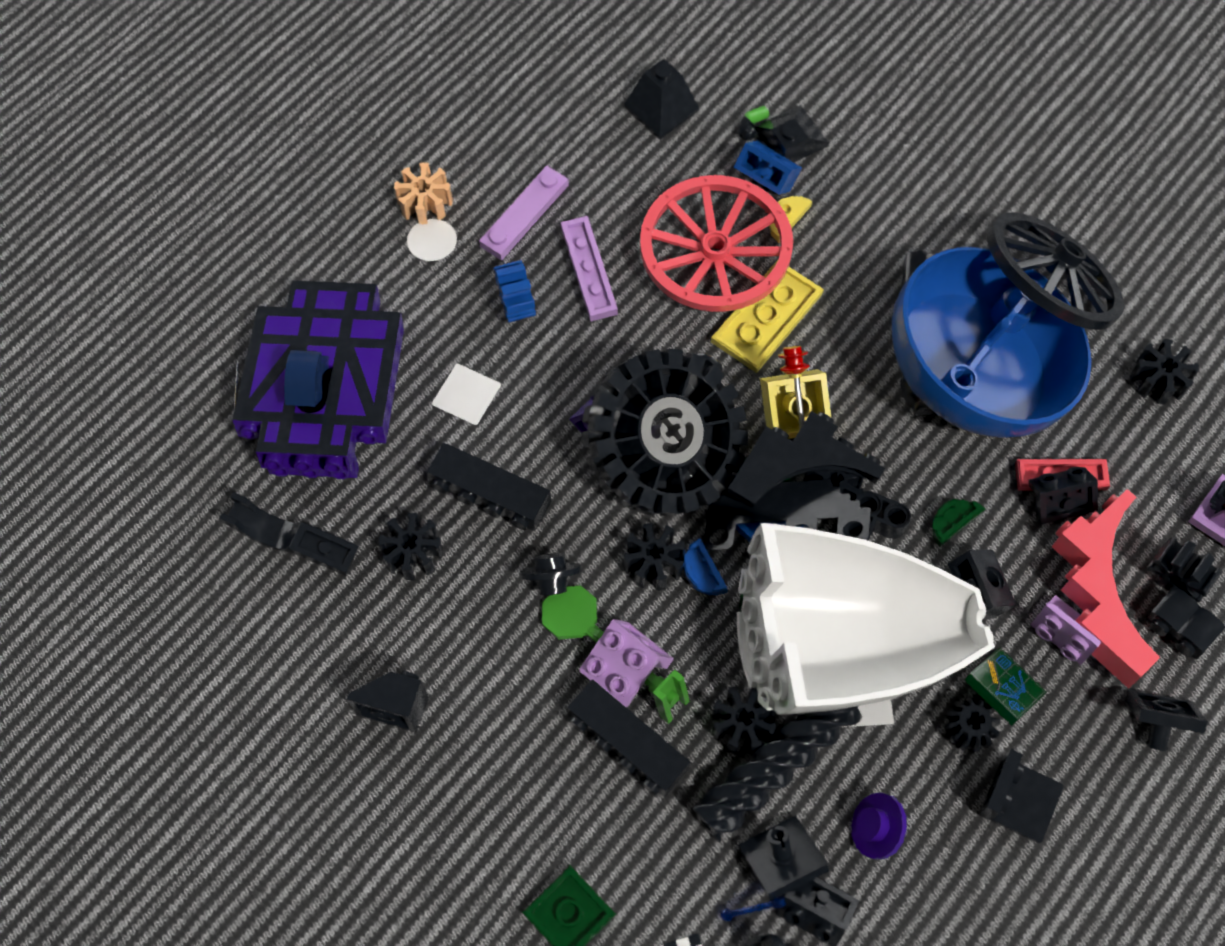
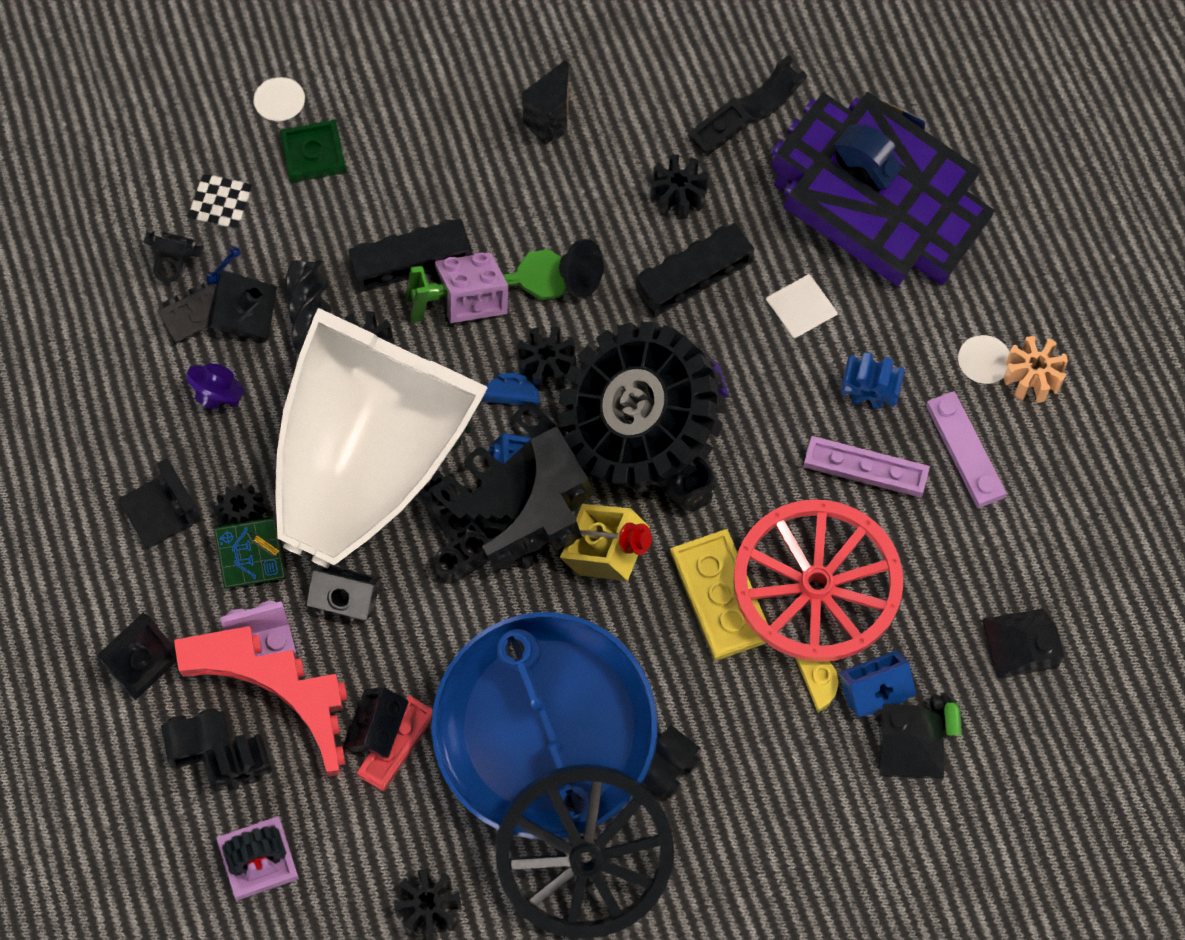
camera: 120 degrees right, 0 degrees up
(954, 517) = (419, 618): dark green plate -> none

